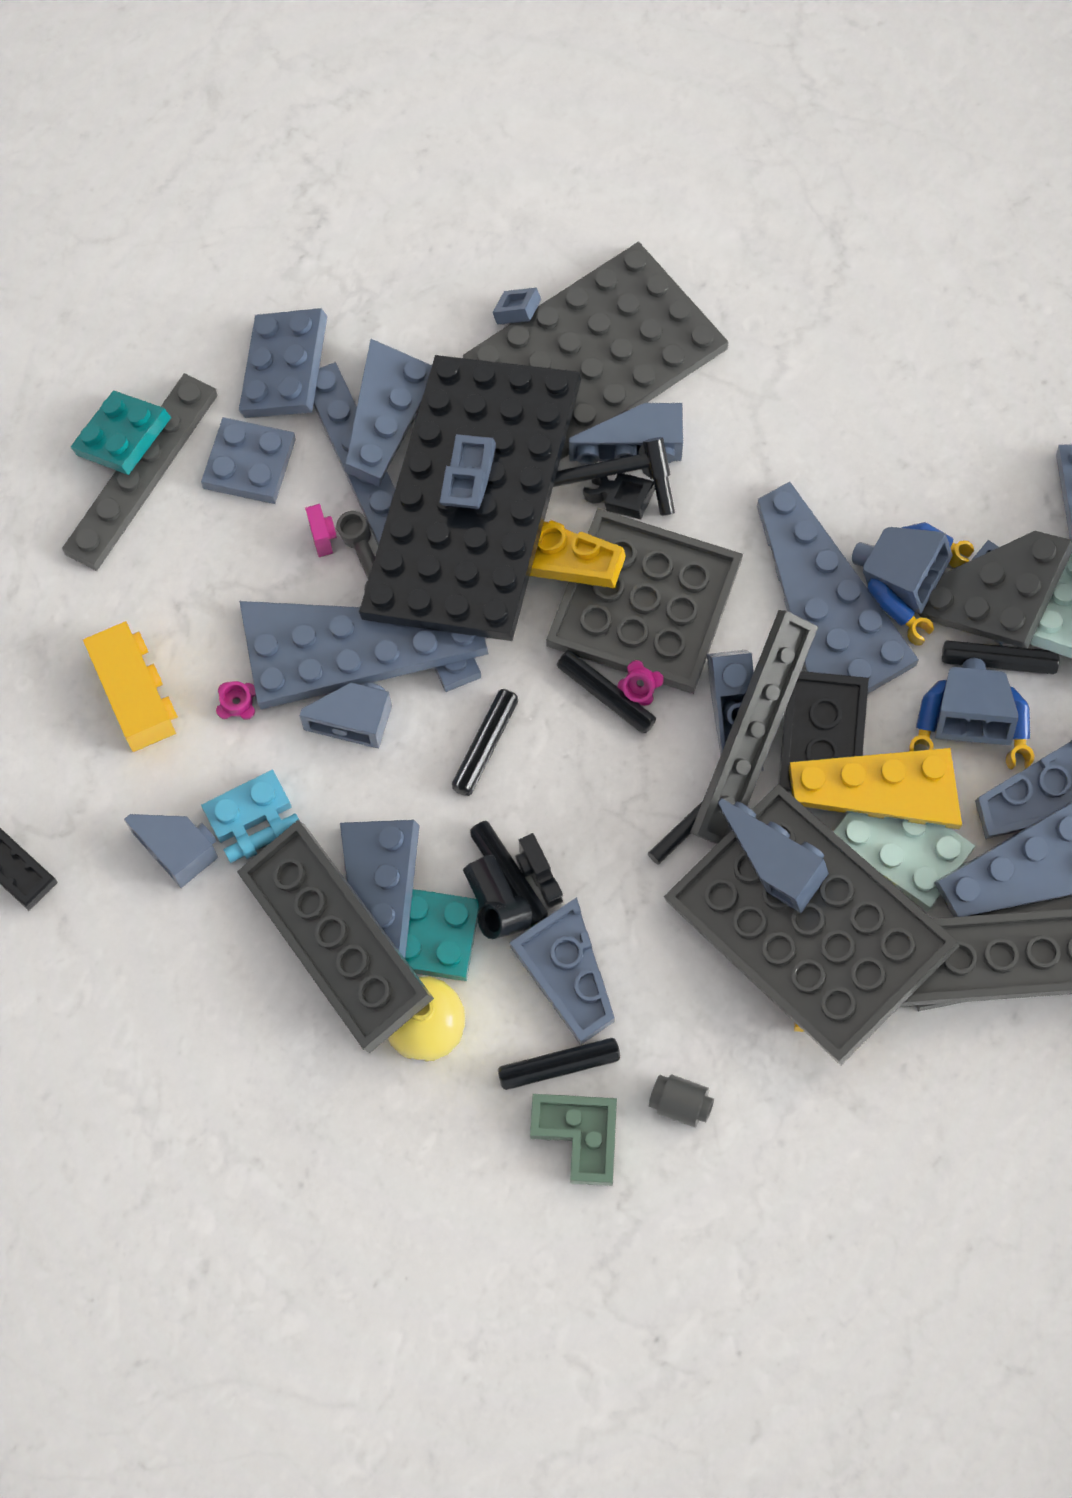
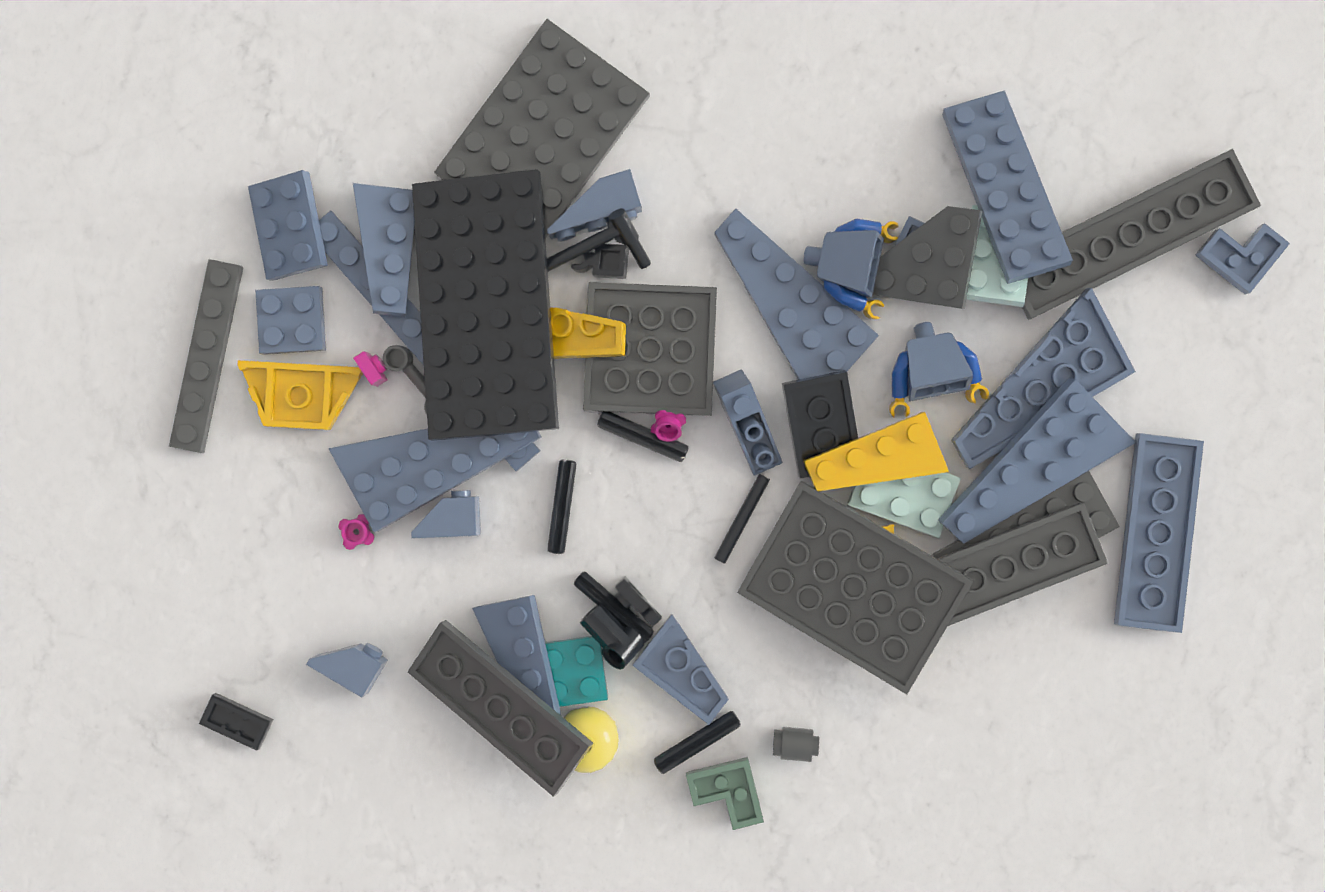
camera: 15 degrees left, 20 degrees up
(120, 432) = (177, 331): teal plate -> none
(131, 685) = (268, 547): yellow brick -> none
(231, 534) = (299, 393): none -> yellow wing
(245, 808) = (395, 615): medium azure plate -> none
(469, 471) = (477, 295): sand blue slope -> none
(516, 306) = (464, 113): sand blue tile -> none
(756, 722) = (770, 440): dark grey plate -> none
(783, 866) = (818, 553): sand blue slope -> none
(1001, 657) = (937, 314): black axle -> none

